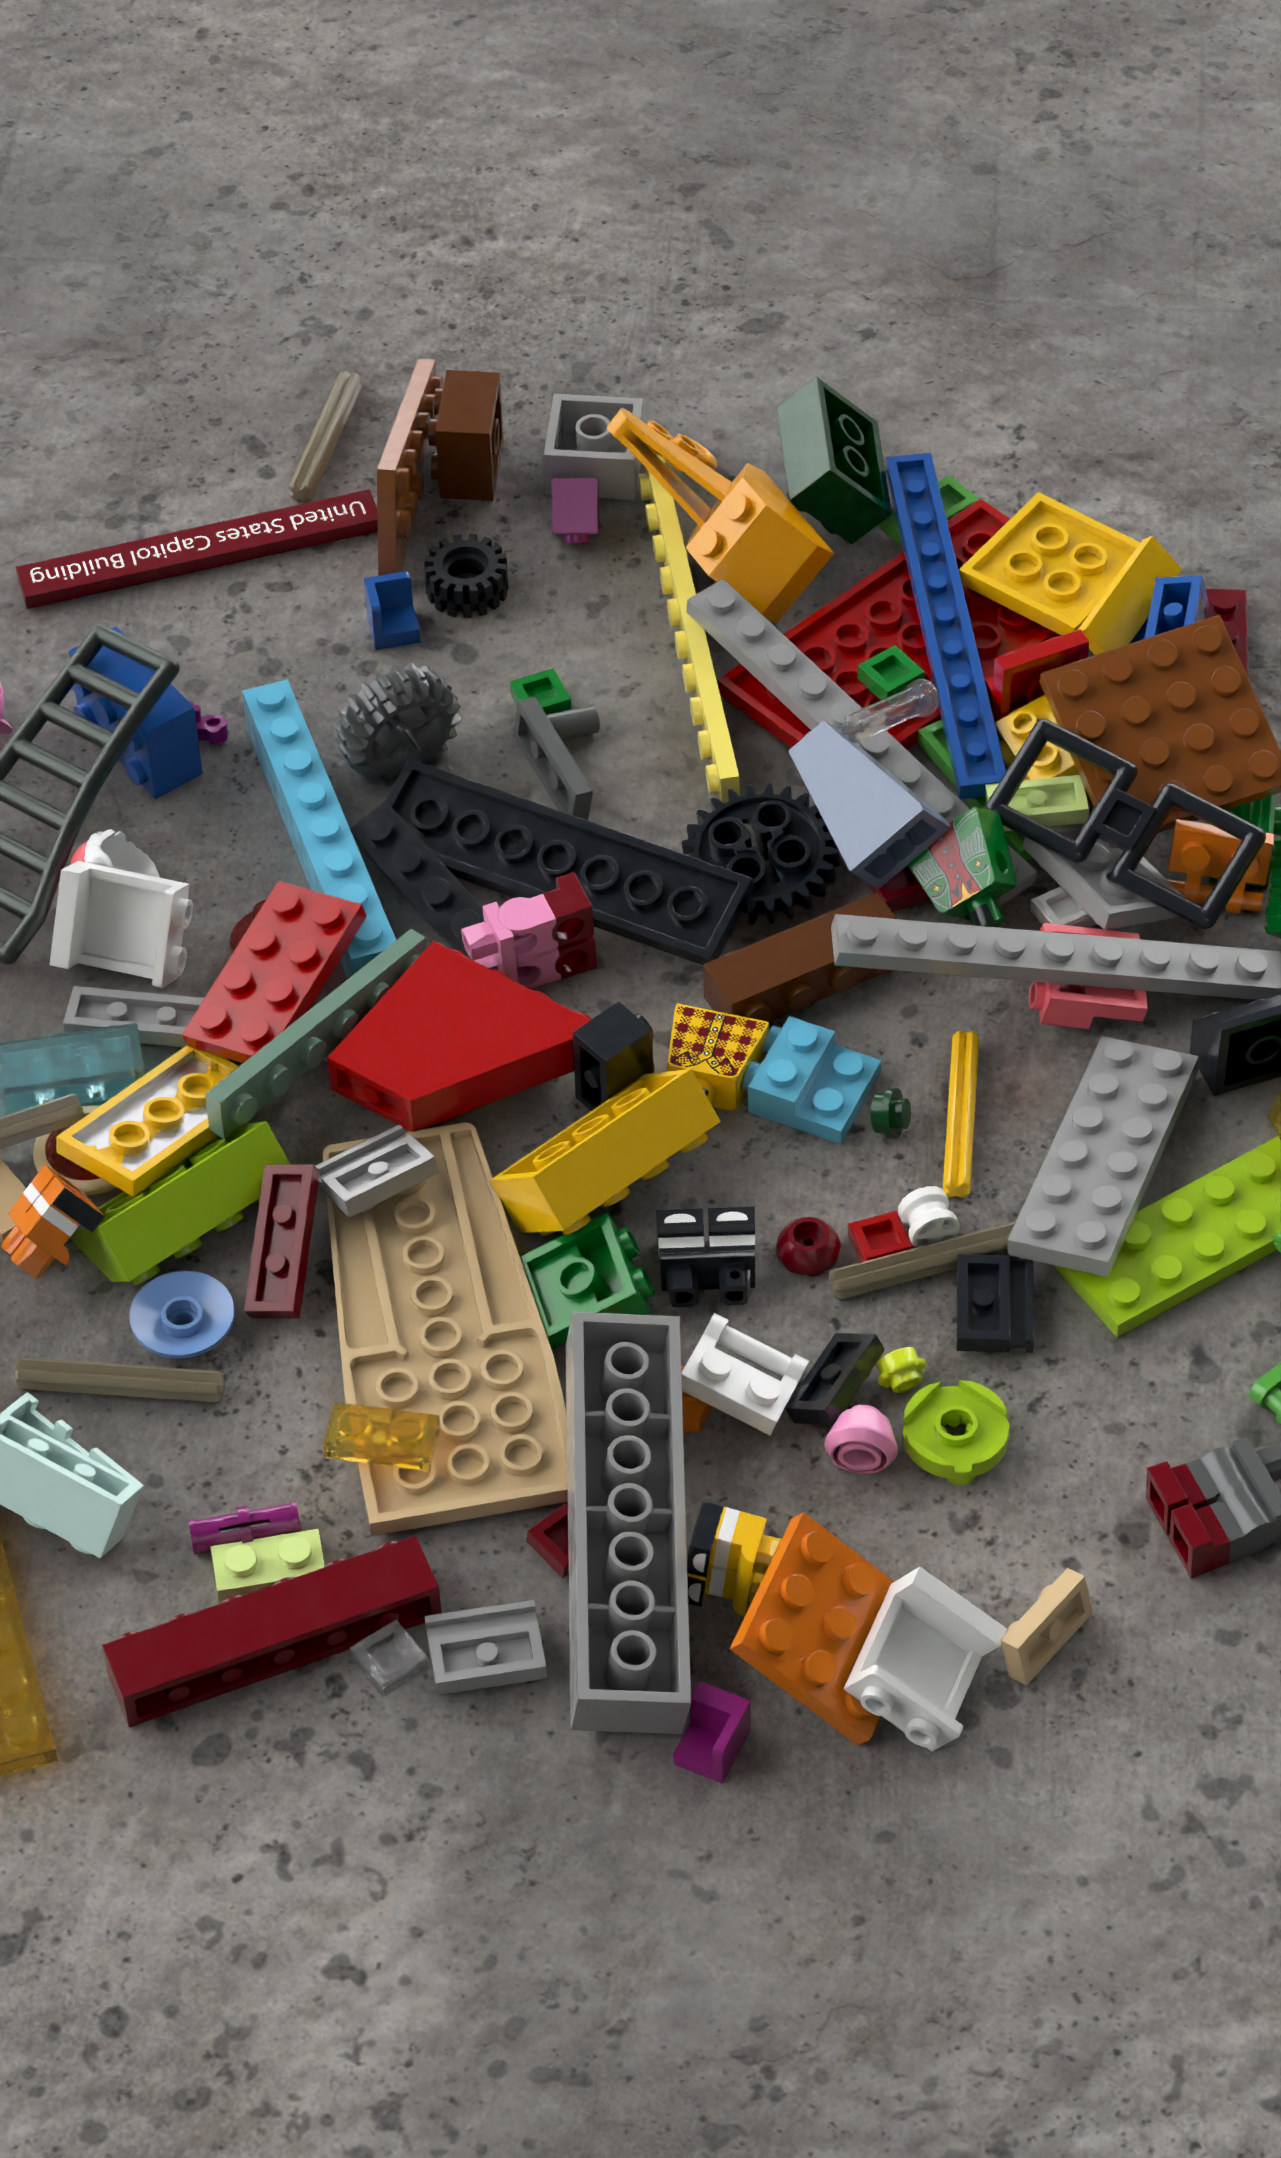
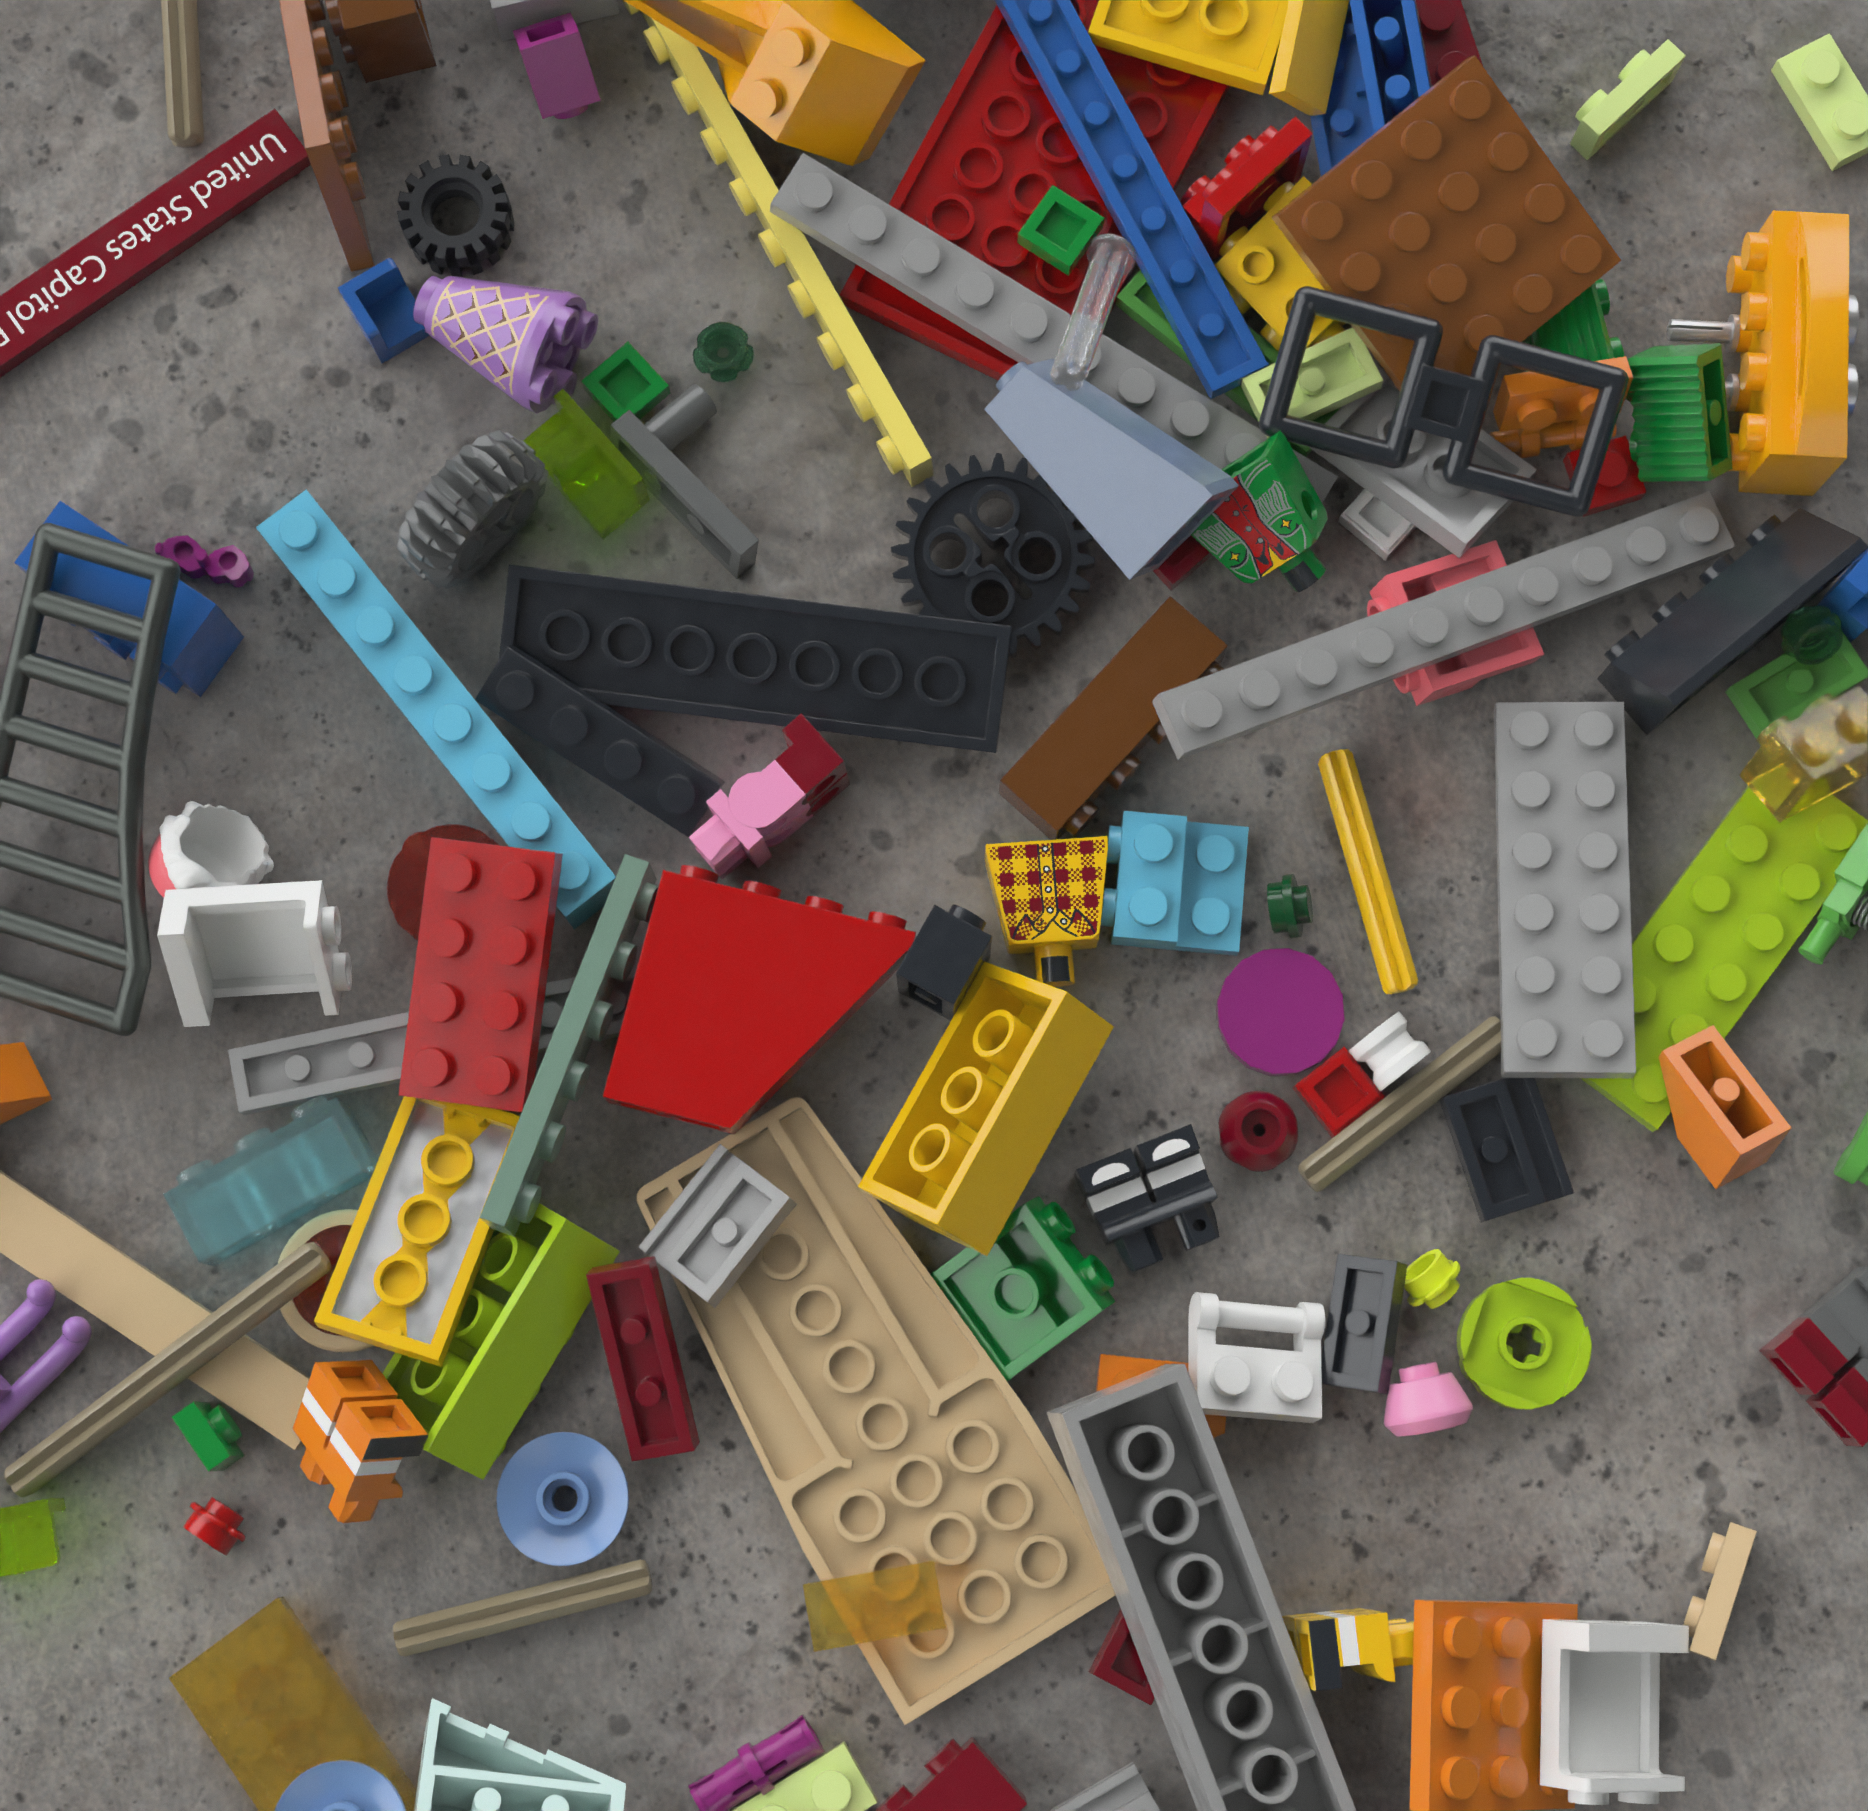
camera: 20 degrees left, 30 degrees up
(475, 641) = (510, 333): none -> medium lavender cone
(494, 734) = (588, 467): none -> clear neon green panel
(619, 695) = (720, 336): none -> clear green plate
(856, 1179) = (1280, 1012): none -> magenta tile
(1168, 1315) = (1719, 1108): none -> orange slope
(1243, 927) = (1618, 477): none -> red plate

